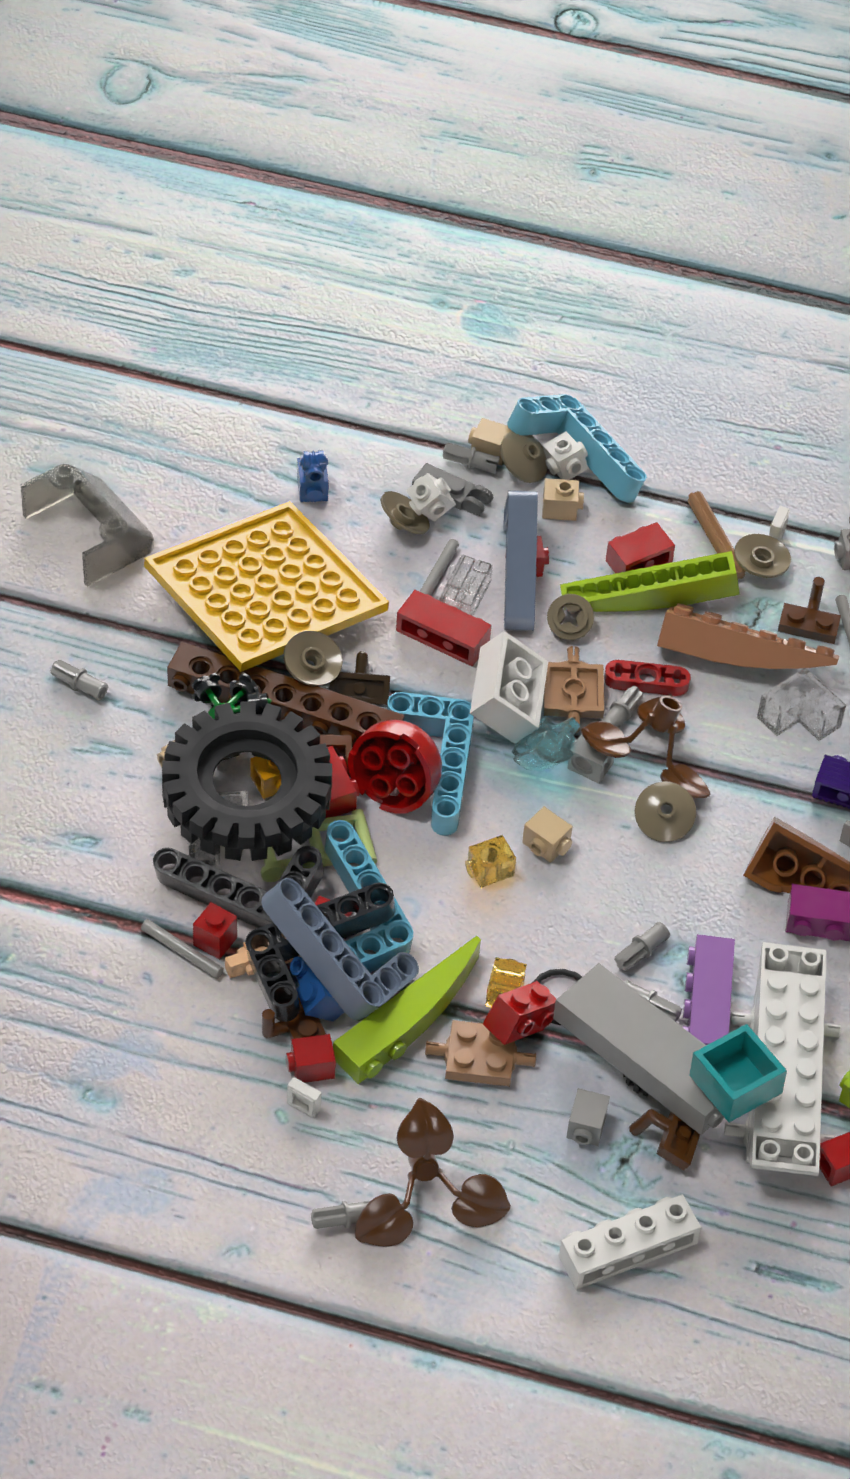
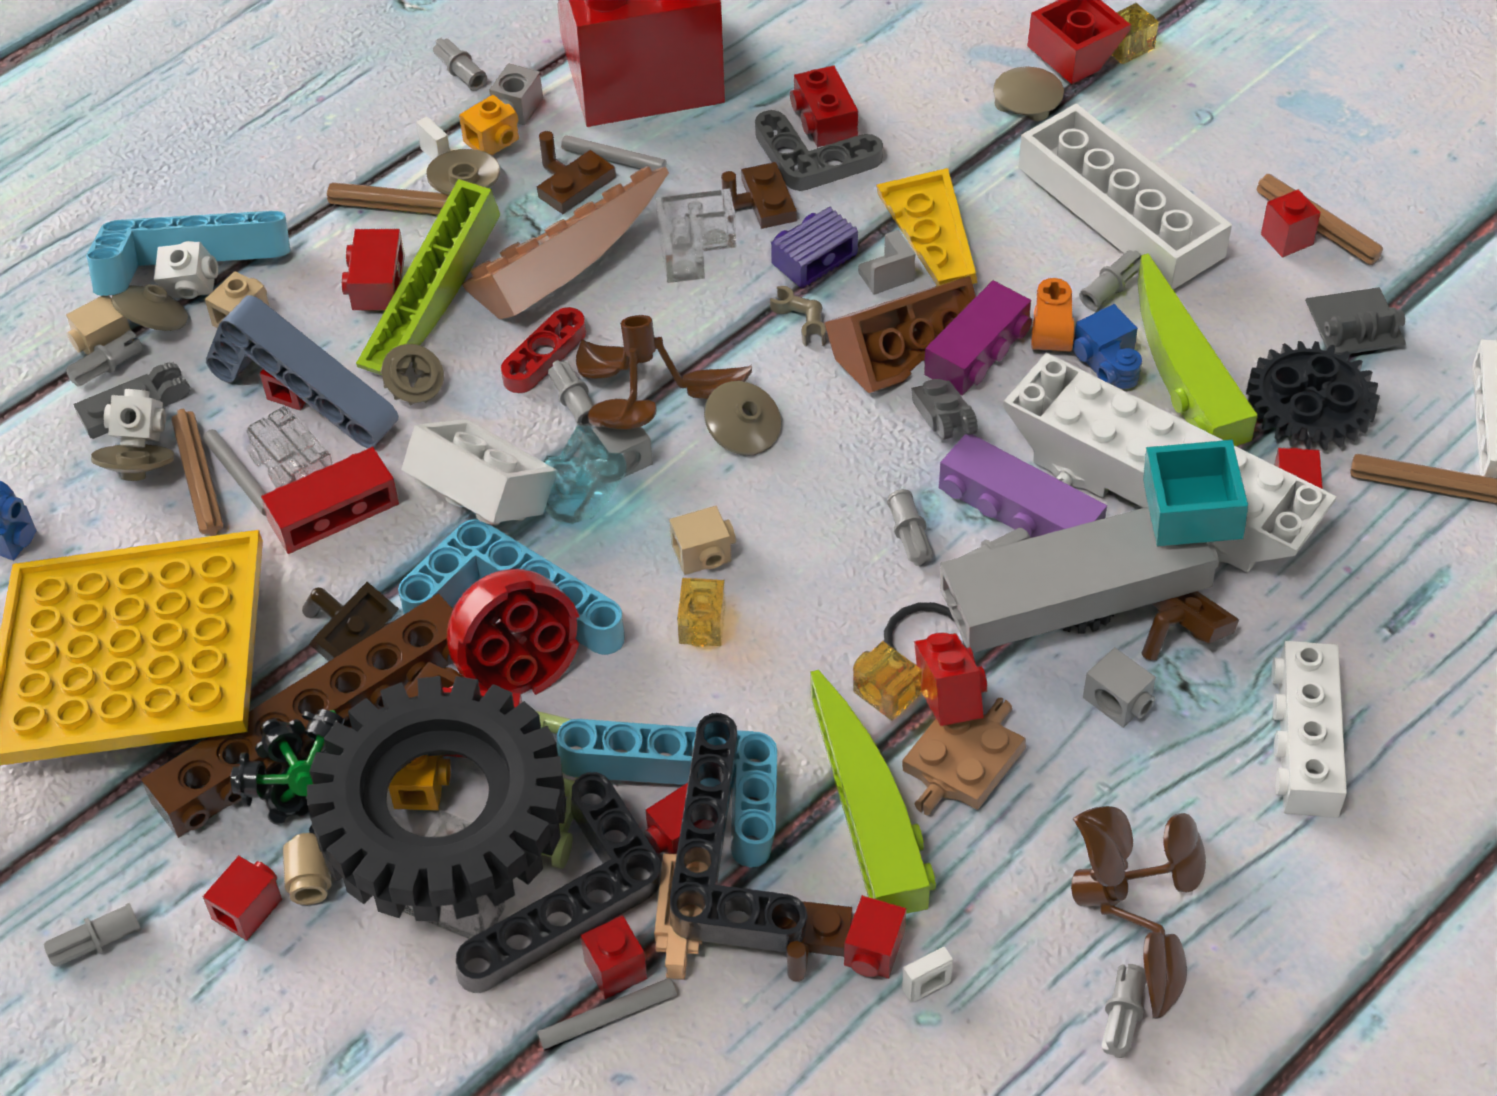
camera: 55 degrees left, 0 degrees up
(144, 733) = (243, 897): none -> red brick
(312, 993) = (790, 871): blue brick -> none
(318, 649) = (287, 644): dark tan dish -> none
(330, 956) = (809, 823): sand blue beam -> none
(420, 551) = (197, 472): none -> medium nougat axle
(574, 688) = (517, 415): medium nougat plate -> none
(751, 919) = (944, 408): none -> dark grey hinge
(794, 808) = (811, 308): none -> dark tan arm
(813, 548) = (489, 125): none -> light orange brick

